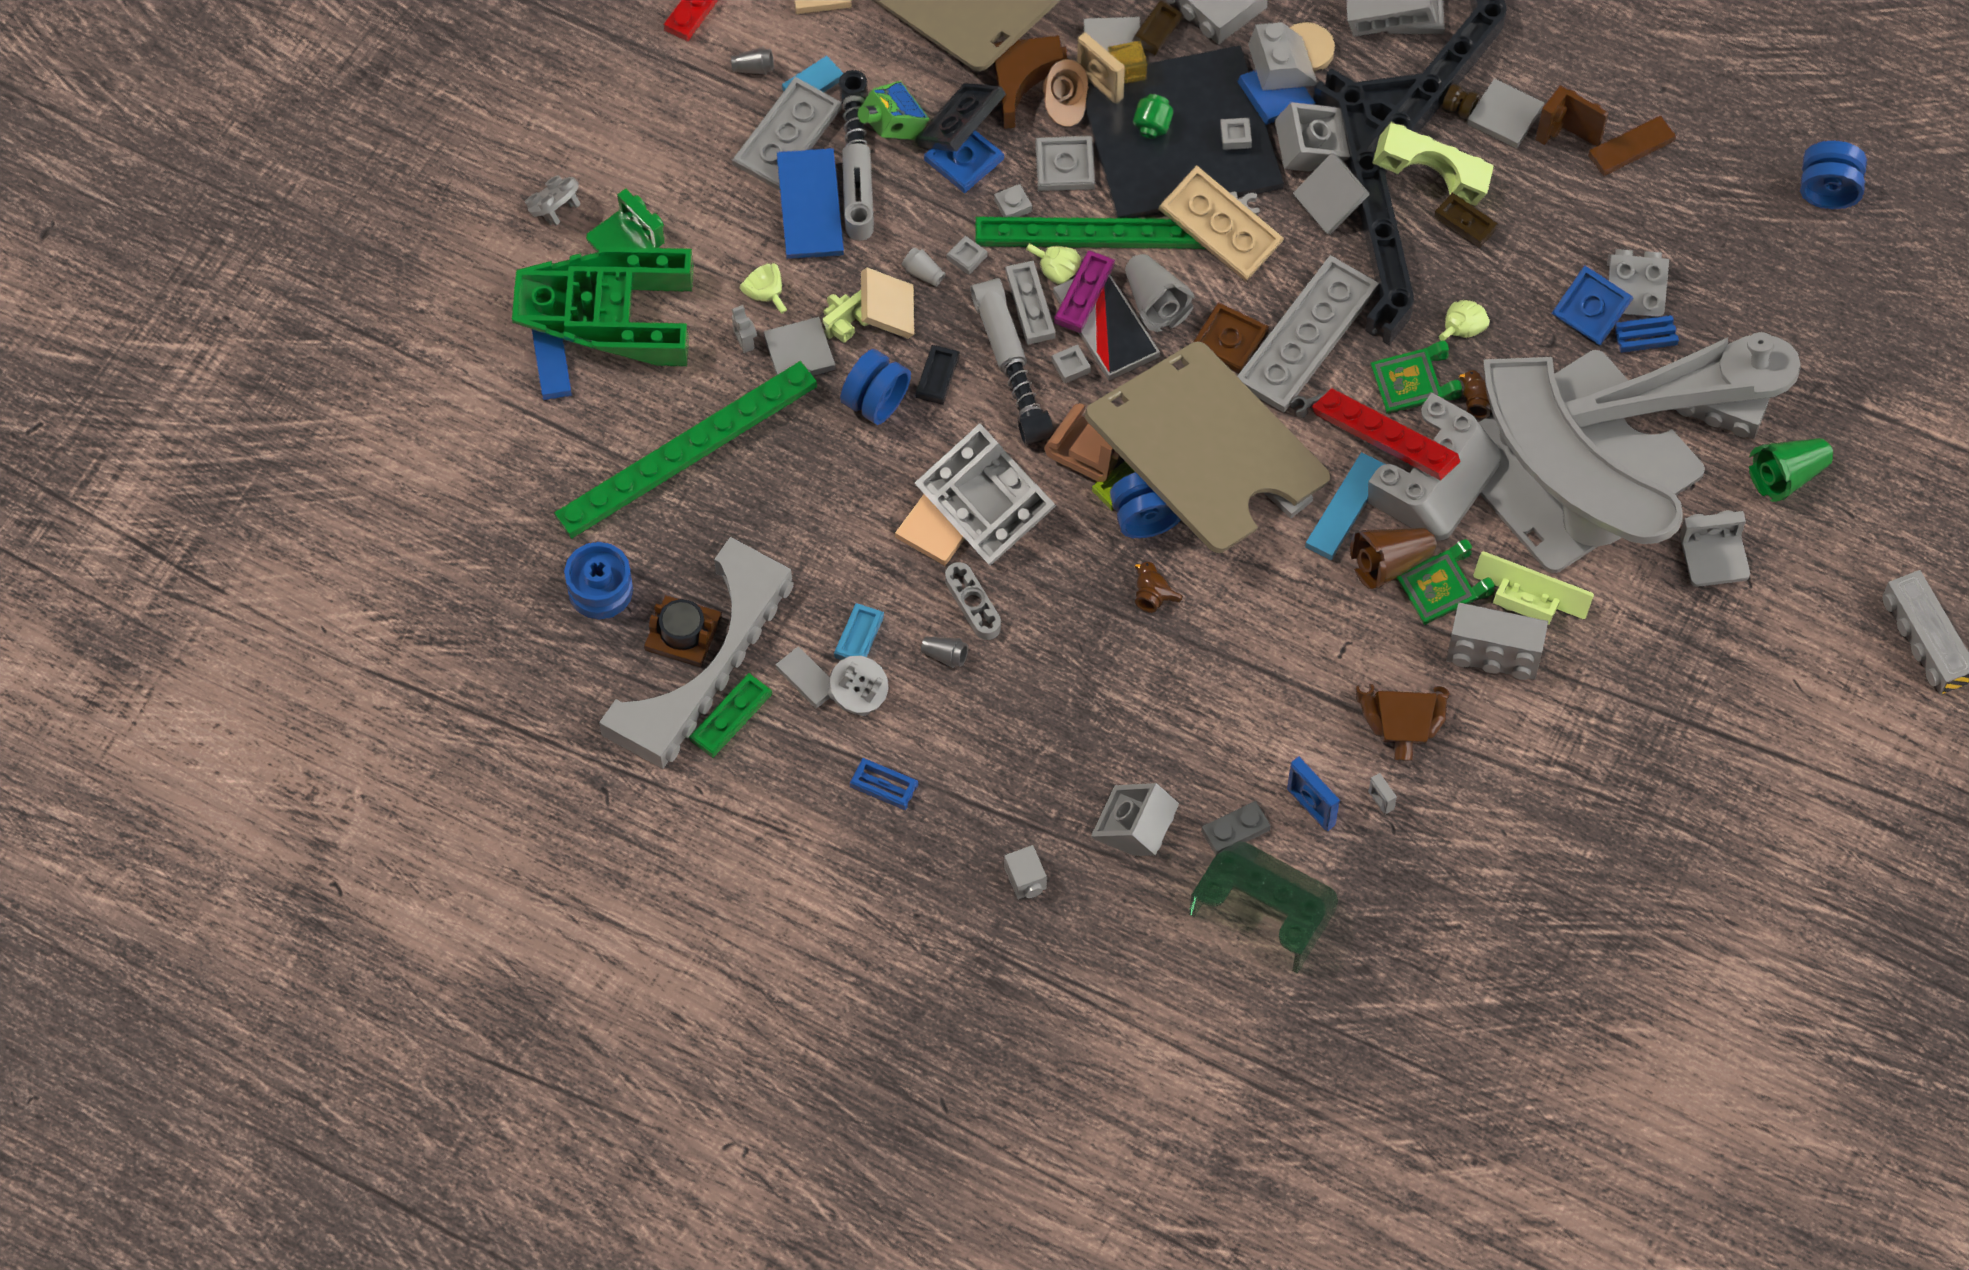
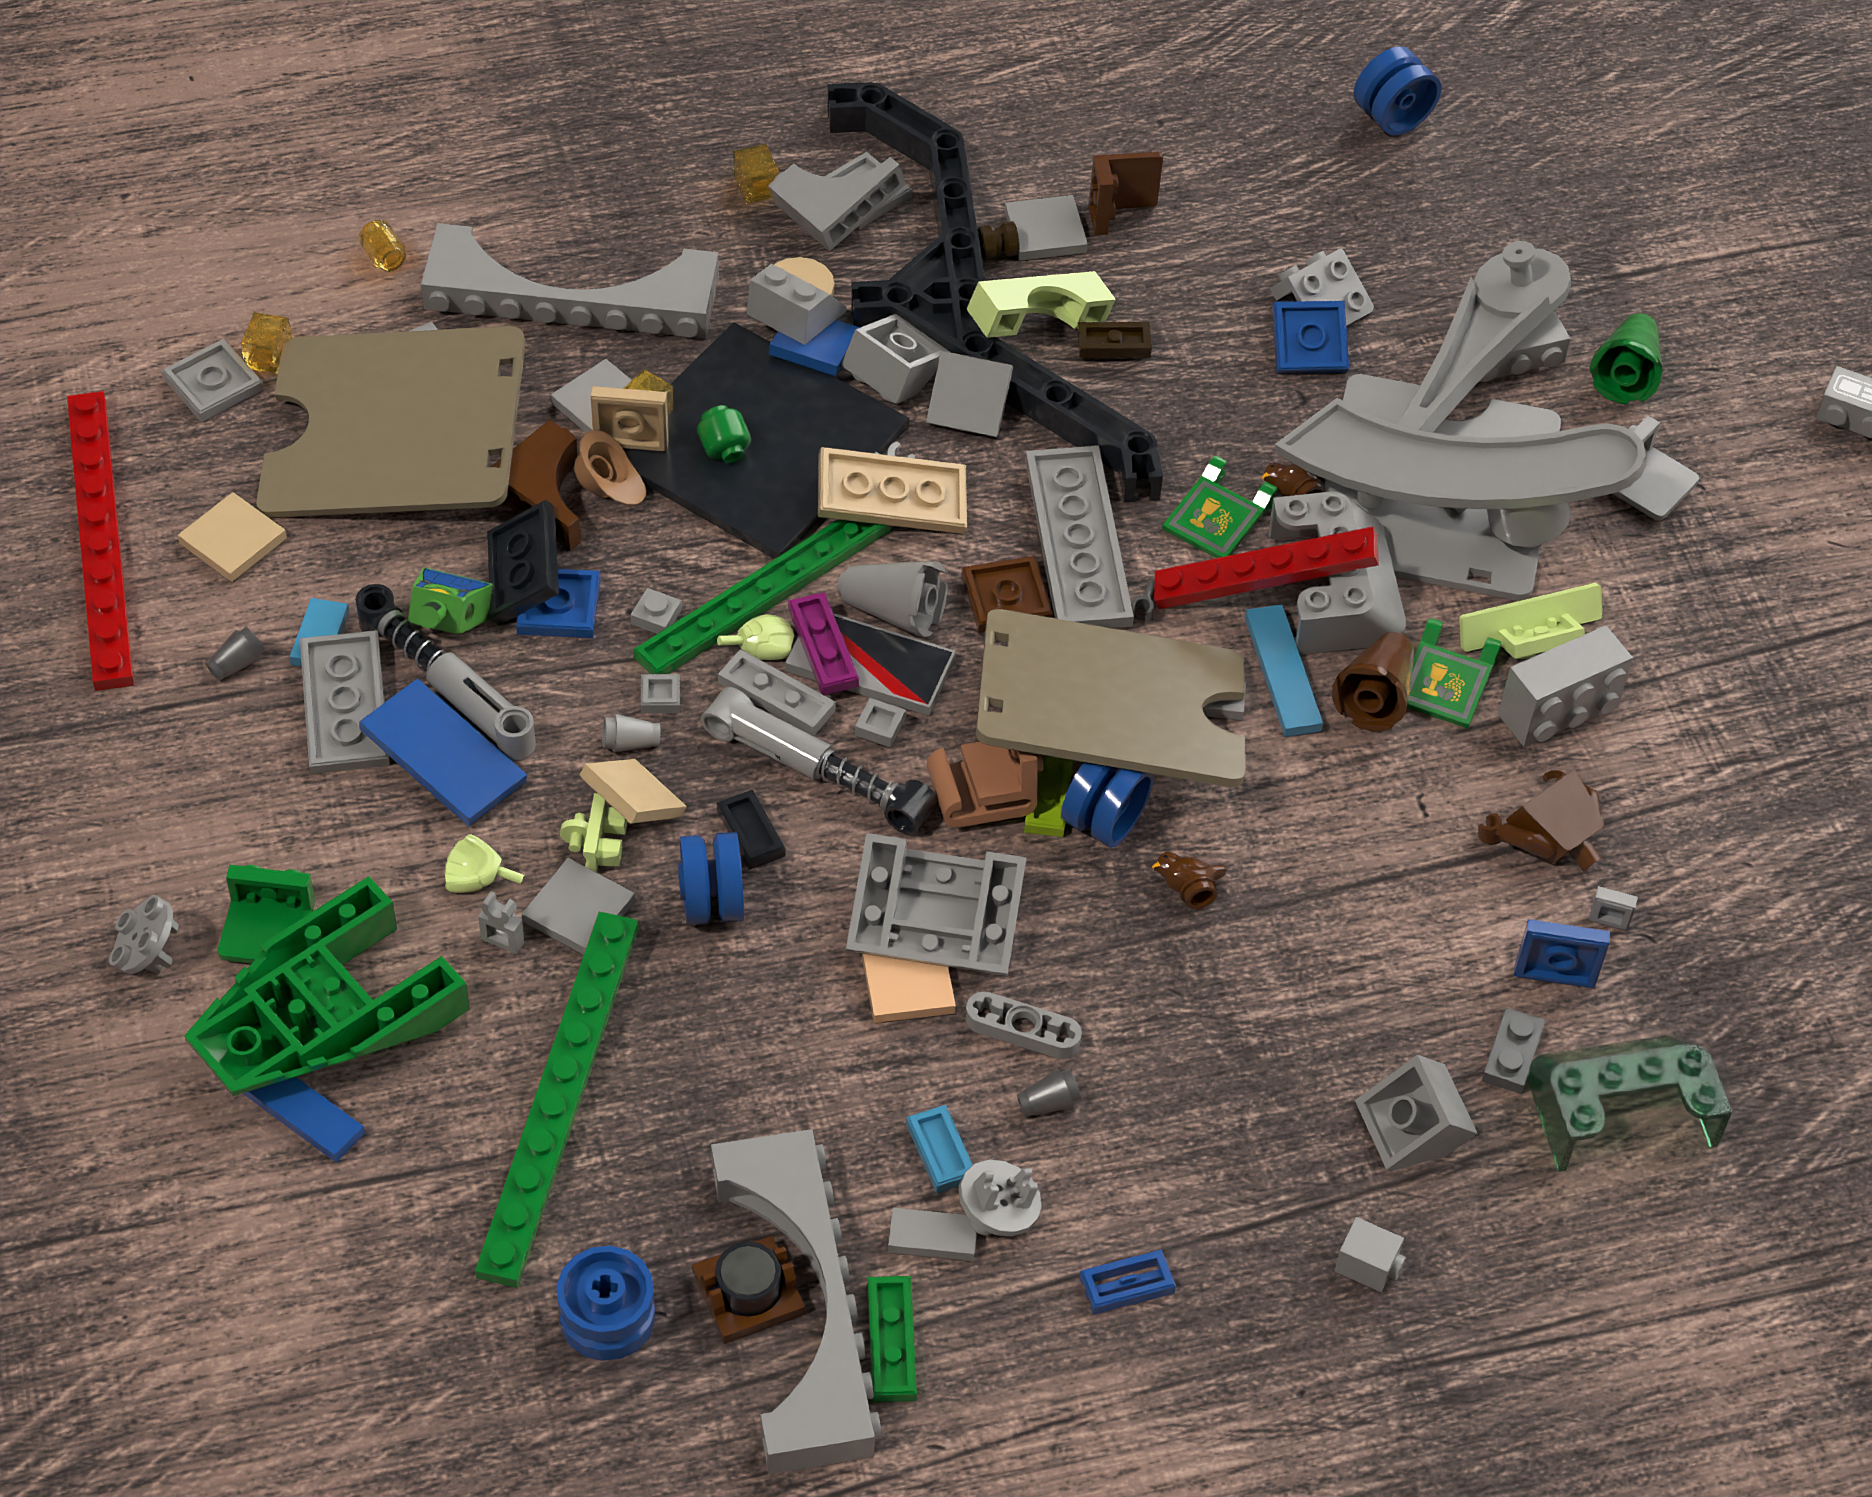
camera: 45 degrees left, 10 degrees down
(1065, 163) = (670, 541): light grey tile -> none
(1158, 27) = (633, 353): dark brown tile -> none
(1235, 133) = (820, 399): light grey plate -> none
(1465, 320) = (1207, 428): yellowish green piece -> none
(1631, 145) = (1188, 184): reddish brown tile -> none
(1645, 329) = (1392, 317): blue tile -> none

